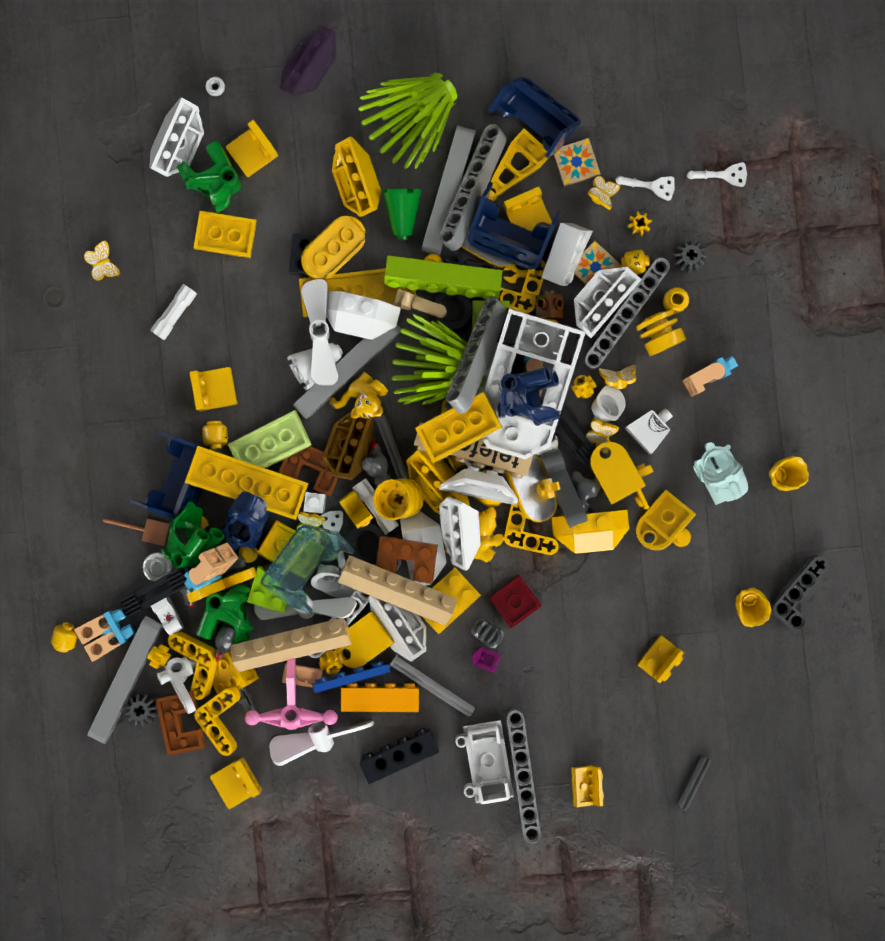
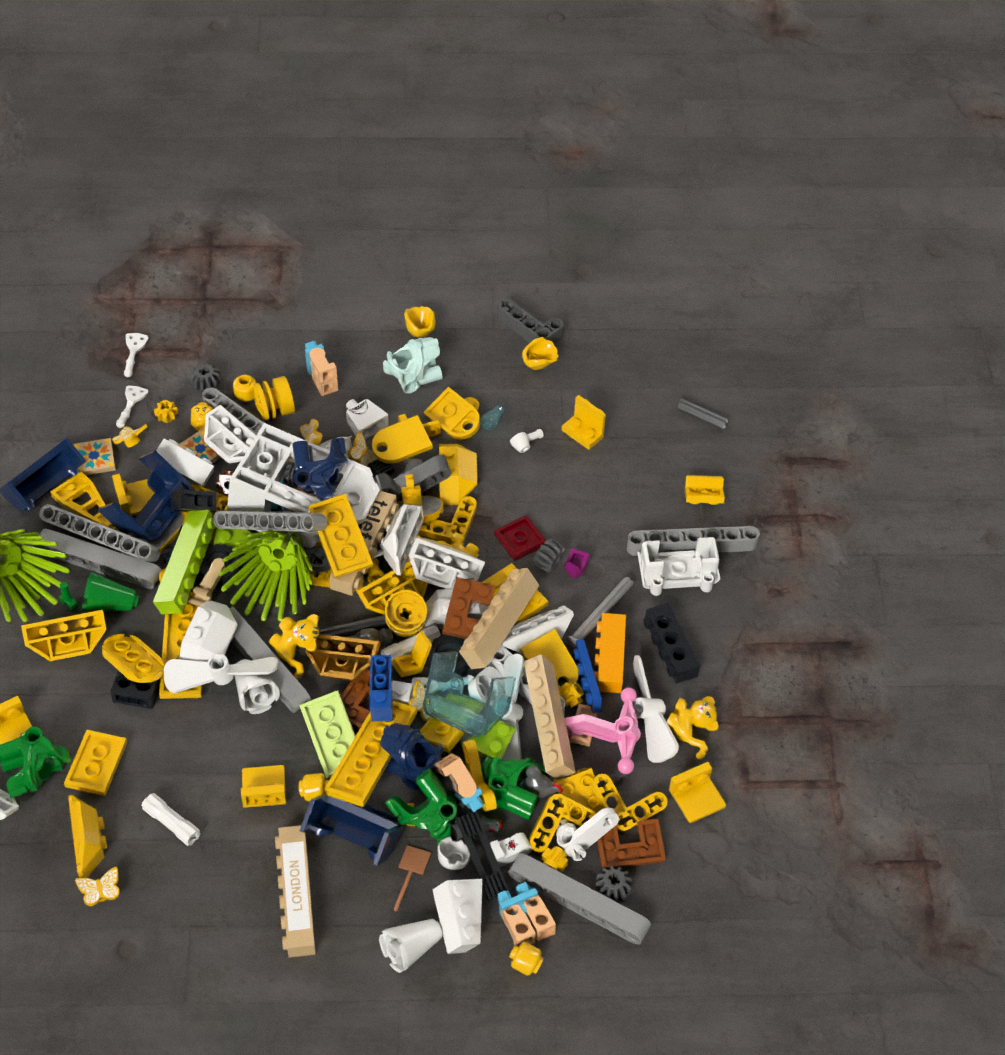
camera: 90 degrees left, 35 degrees down
(69, 538) = (409, 942): none -> white cone
(97, 578) = (460, 913): none -> white wedge
(111, 433) = (296, 892): none -> brick
(151, 241) = (87, 836): none -> yellow wedge
(305, 485) = (381, 688): none -> blue slope
(321, 785) = (701, 714): none -> yellow animal
(398, 169) = (65, 597): none -> green bar
(512, 273) = (192, 500): none -> black brick
(532, 365) = (288, 478): none -> dark grey gear
(634, 595) = (521, 440): none -> white bar
(664, 561) = (491, 418): none -> clear light blue cone

